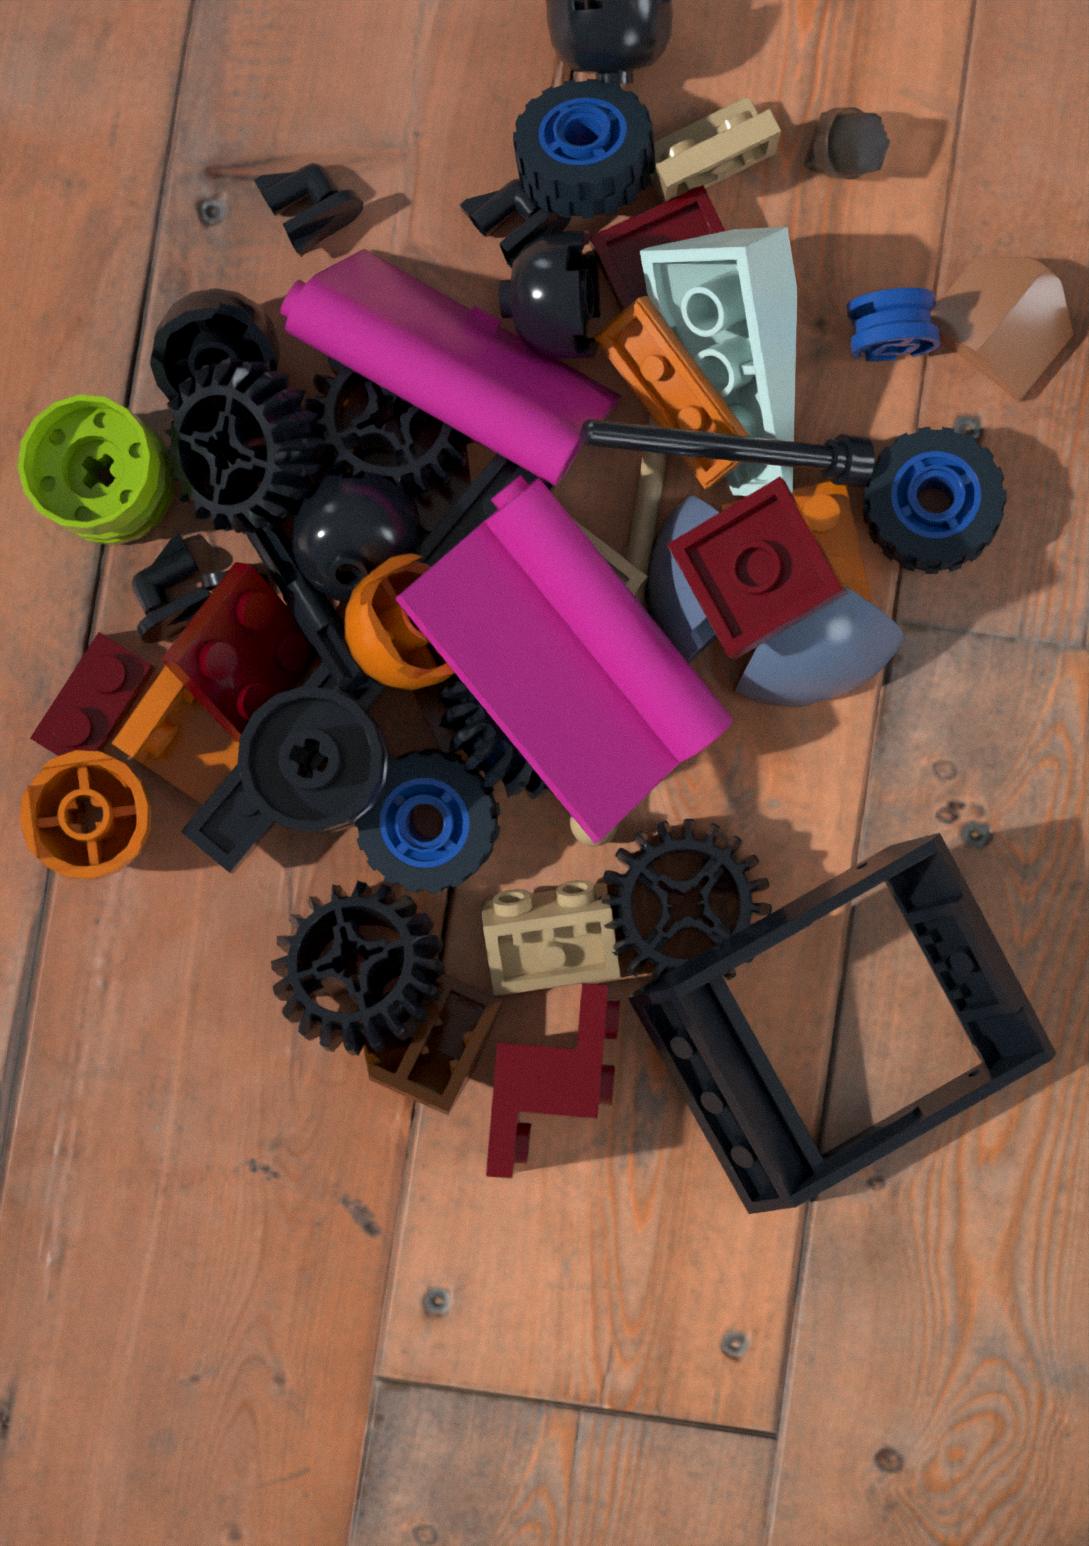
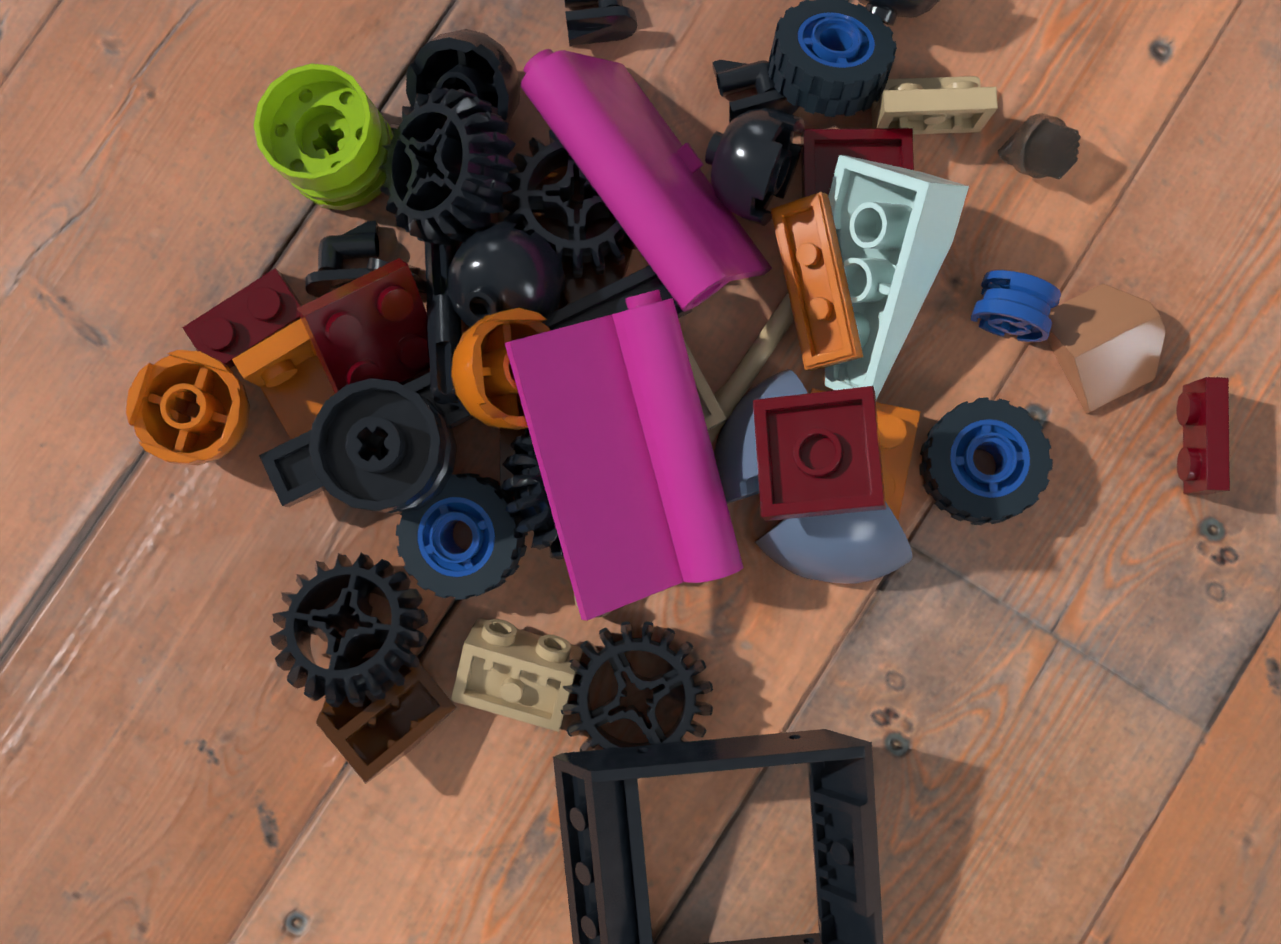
camera: 20 degrees right, 0 degrees up
(551, 1081) = (457, 797): dark red bracket -> none
(844, 460) = (927, 396): black piece -> none

